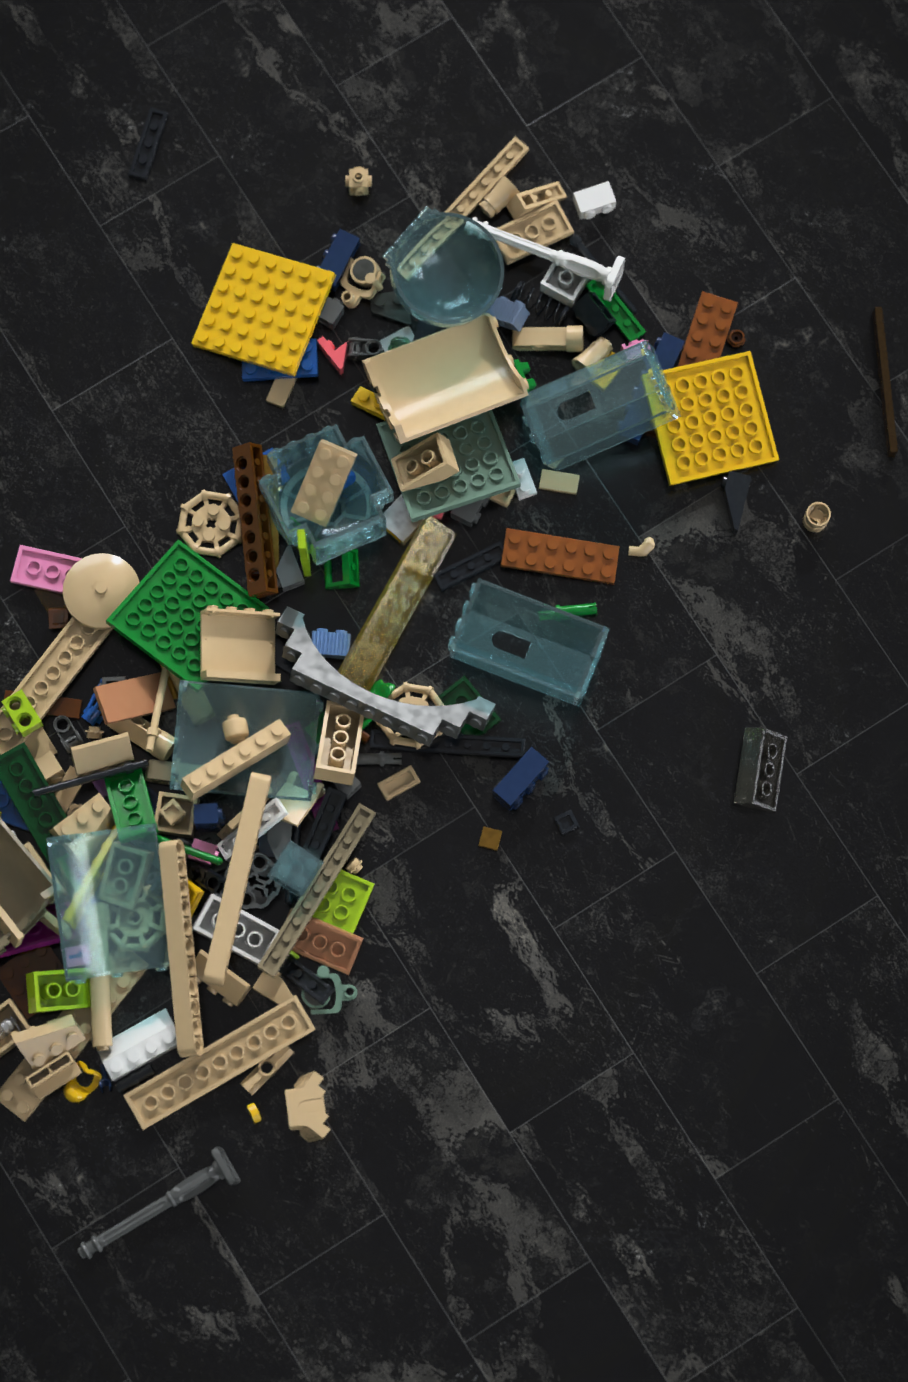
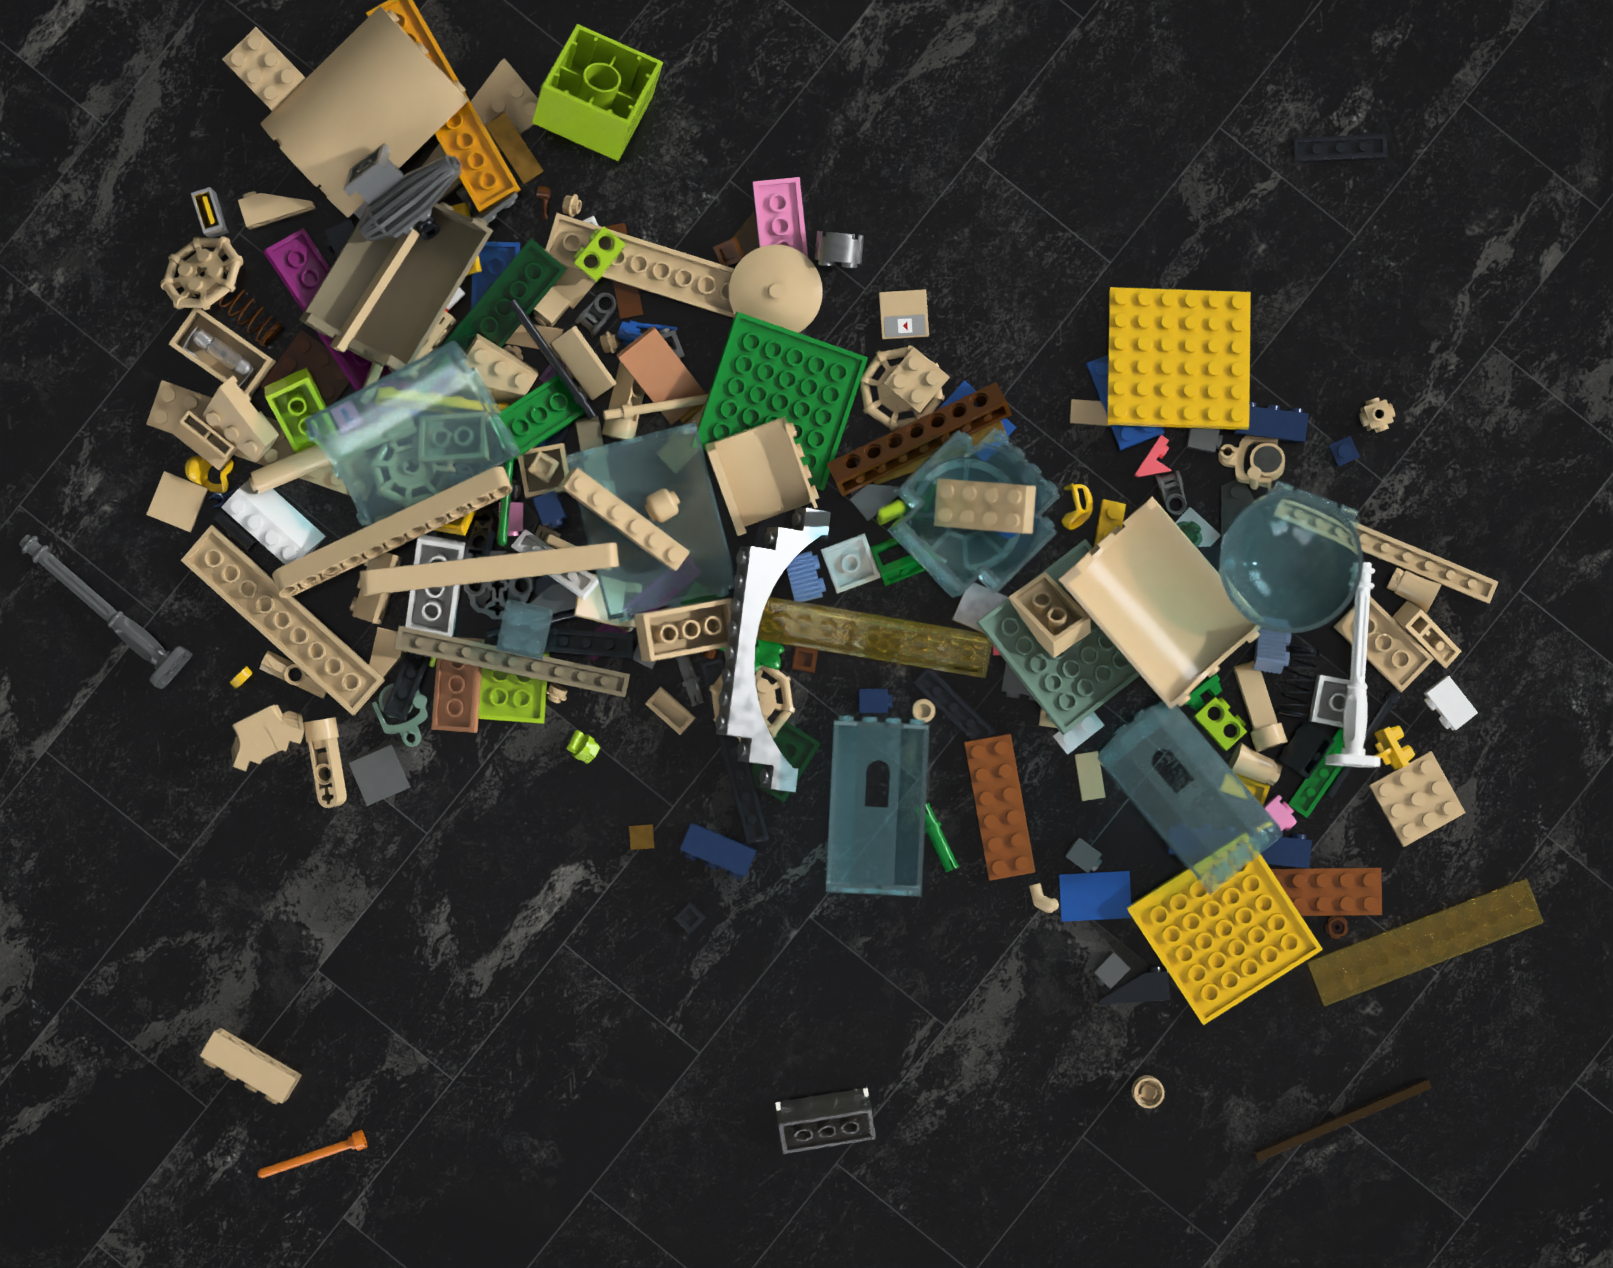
camera: 70 degrees right, 10 degrees up
(86, 531) = (839, 248): none -> flat silver brick
(95, 1117) = (177, 501): none -> tan tile
(155, 503) = (904, 314): none -> tan tile
(209, 508) = (916, 380): none -> tan plate
(322, 1063) = (324, 735): none -> tan beam
(332, 606) = (850, 563): none -> white tile
(358, 426) = (1076, 518): none -> yellow piece
(370, 1028) = (379, 775): none -> dark grey tile
(377, 215) = (1343, 451): none -> dark blue plate
(394, 666) = (804, 659): none -> reddish brown tile
(404, 859) = (583, 747): none -> lime piece
(445, 621) = (874, 700): none -> dark blue brick
(463, 589) = (923, 710): none -> tan tile
(549, 367) = (1216, 727): none -> lime brick
(568, 1209) = (250, 1065): none -> tan brick
(608, 254) = (1390, 749): none -> yellow hips
(618, 505) = (1084, 855): none -> dark grey brick
(653, 508) = (1094, 896): none -> blue tile
(658, 249) = (1417, 799): none -> tan plate
(658, 1147) = (356, 1141): none -> orange piece
(714, 514) = (1110, 970): none -> dark grey brick
(769, 278) = (1425, 942): none -> clear yellow plate

